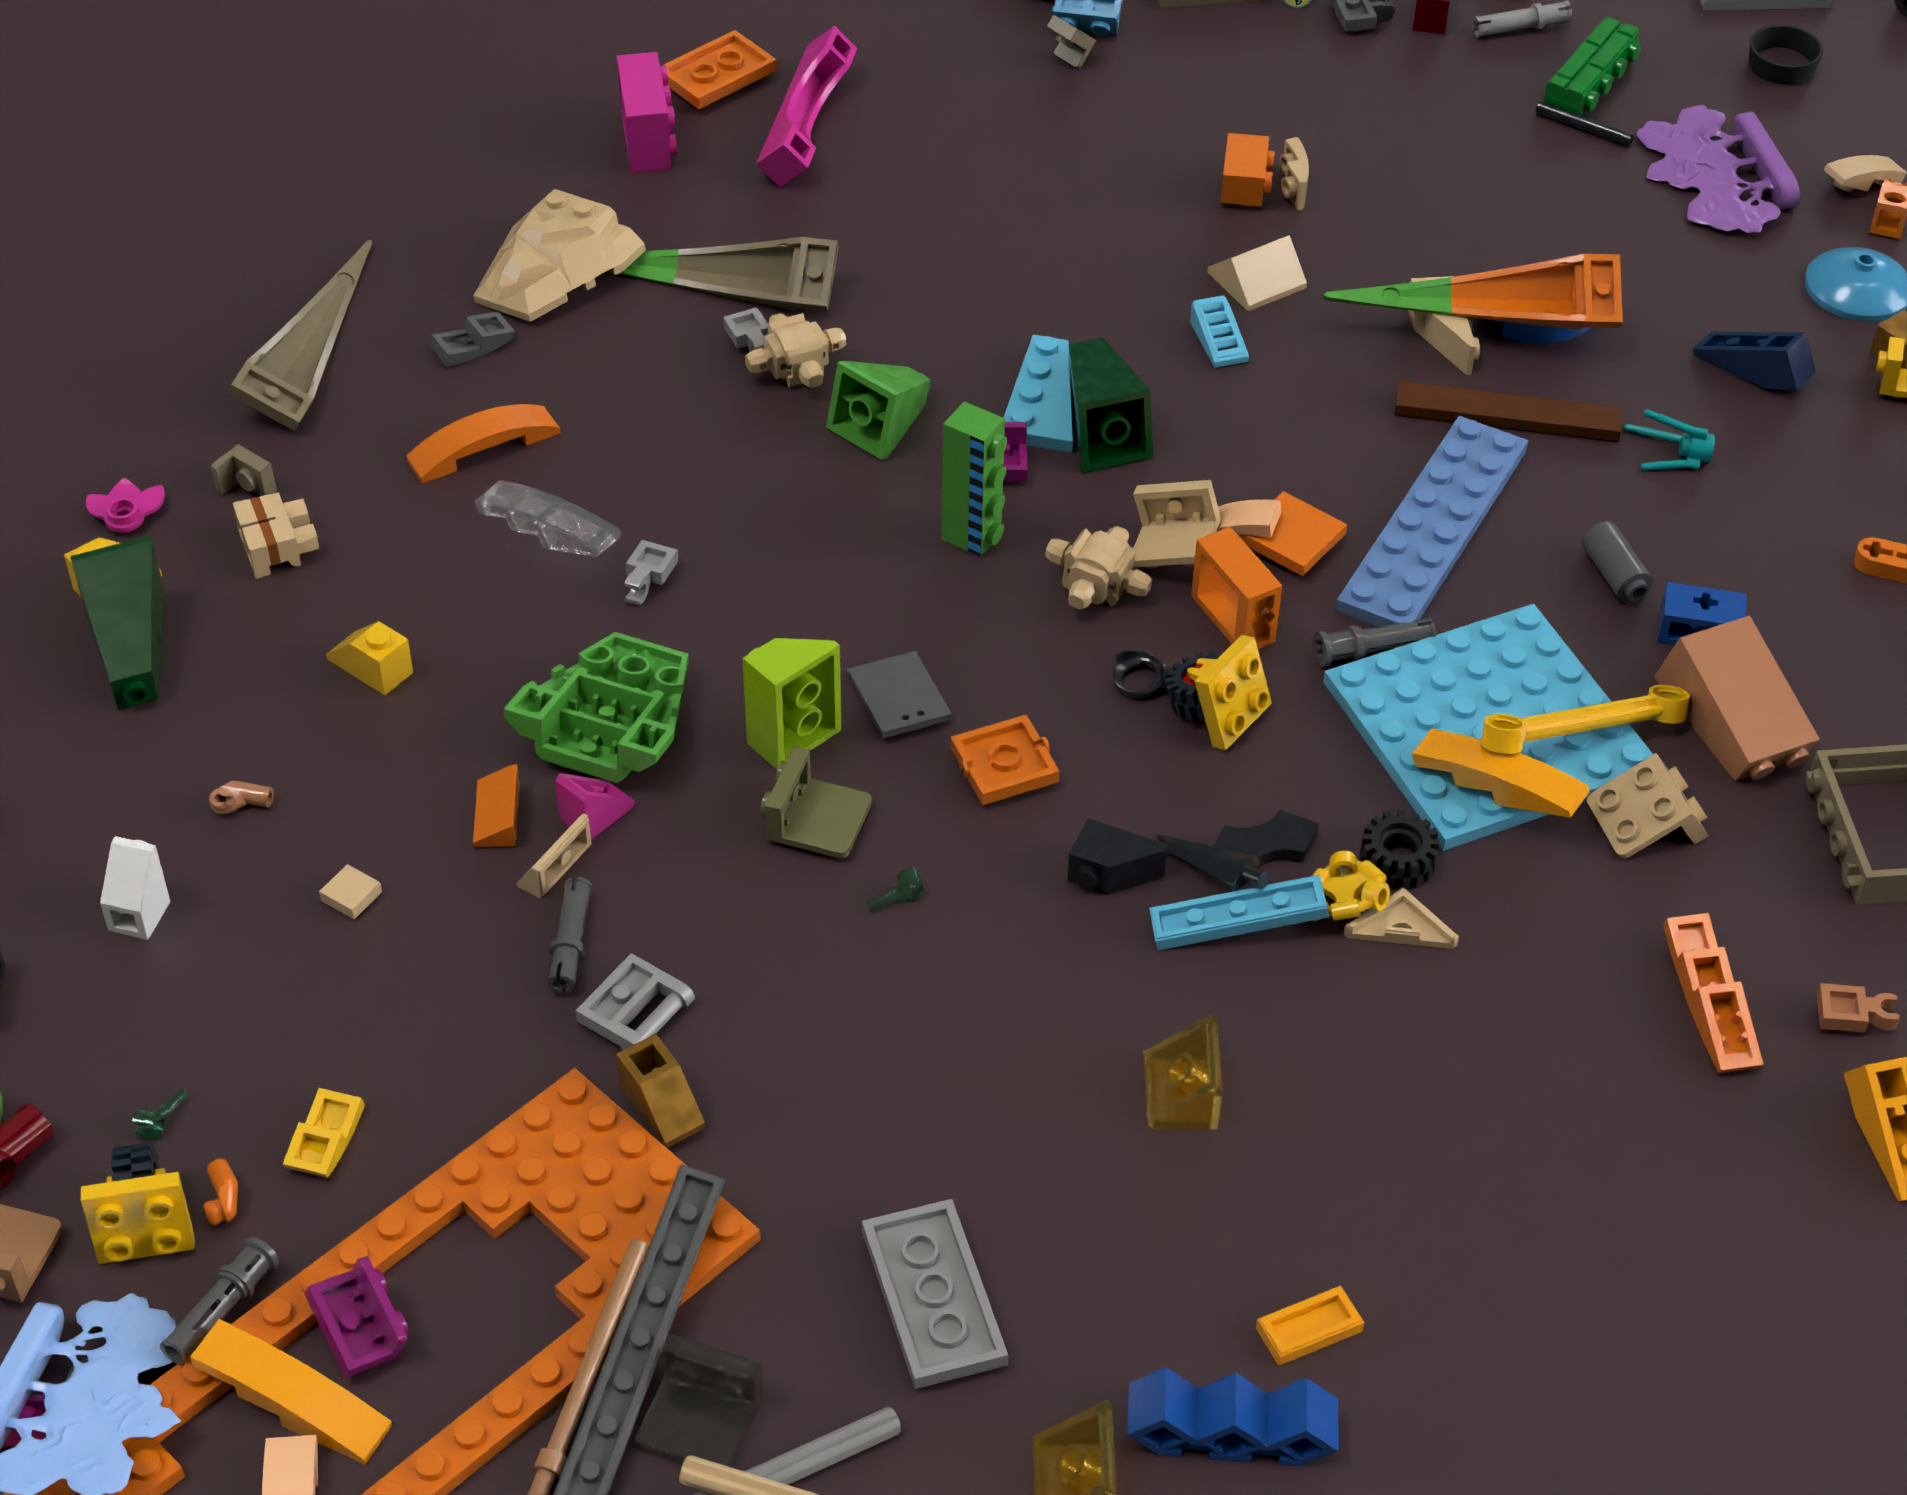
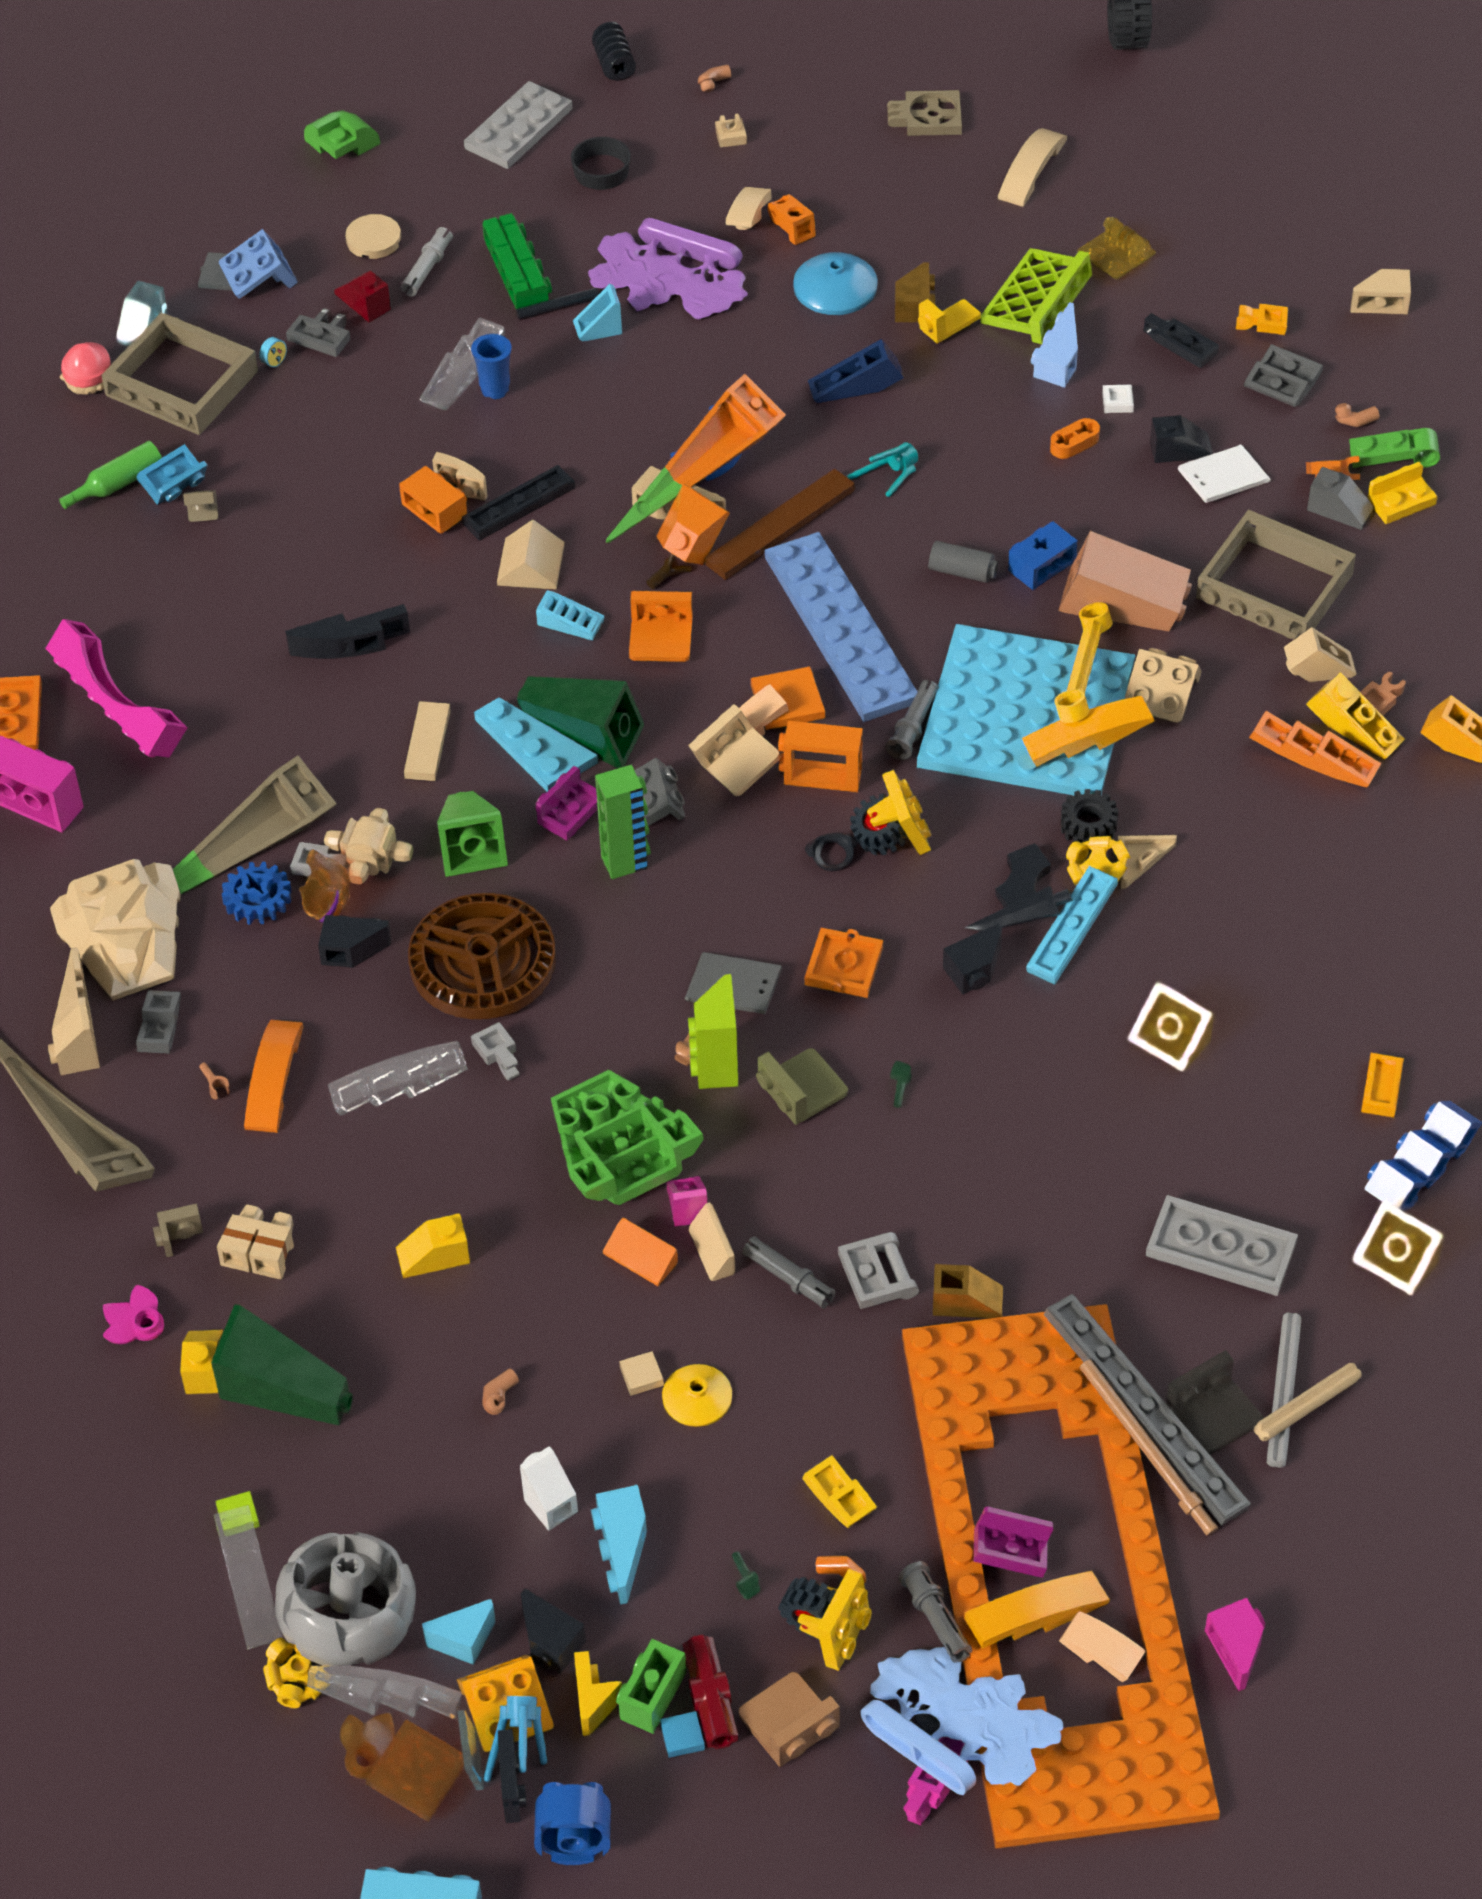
camera: 50 degrees left, 5 degrees up
(129, 985) = (624, 1533): none -> medium azure slope
(362, 952) = (698, 1407): none -> yellow dish
(423, 282) = (72, 1027): none -> tan wedge
(435, 410) = (214, 1081): none -> nougat hand
(672, 314) = (256, 893): none -> blue gear
(678, 401) = (351, 940): none -> black slope
(720, 352) = (325, 888): none -> clear orange hair
(747, 496) = (483, 958): none -> reddish brown piece
(968, 326) = (427, 741): none -> tan tile
(1022, 206) = (342, 639): none -> black slope
(1072, 506) = (662, 791): none -> dark grey bracket
(1098, 567) = (730, 812): tan piece -> none
(1278, 399) = (661, 626): none -> orange bracket
(1318, 229) = (518, 502): none -> black tile
(1355, 366) = (666, 571): none -> dark brown bar
(1412, 345) = (692, 526): none -> orange slope
(1423, 107) = (457, 368): none -> clear slope
(1440, 111) = (492, 364): none -> blue plant
(1602, 155) = (600, 317): none -> medium azure slope
(1797, 1001) = (1353, 716): none -> yellow slope
(1842, 922) = (1318, 657): none -> tan slope

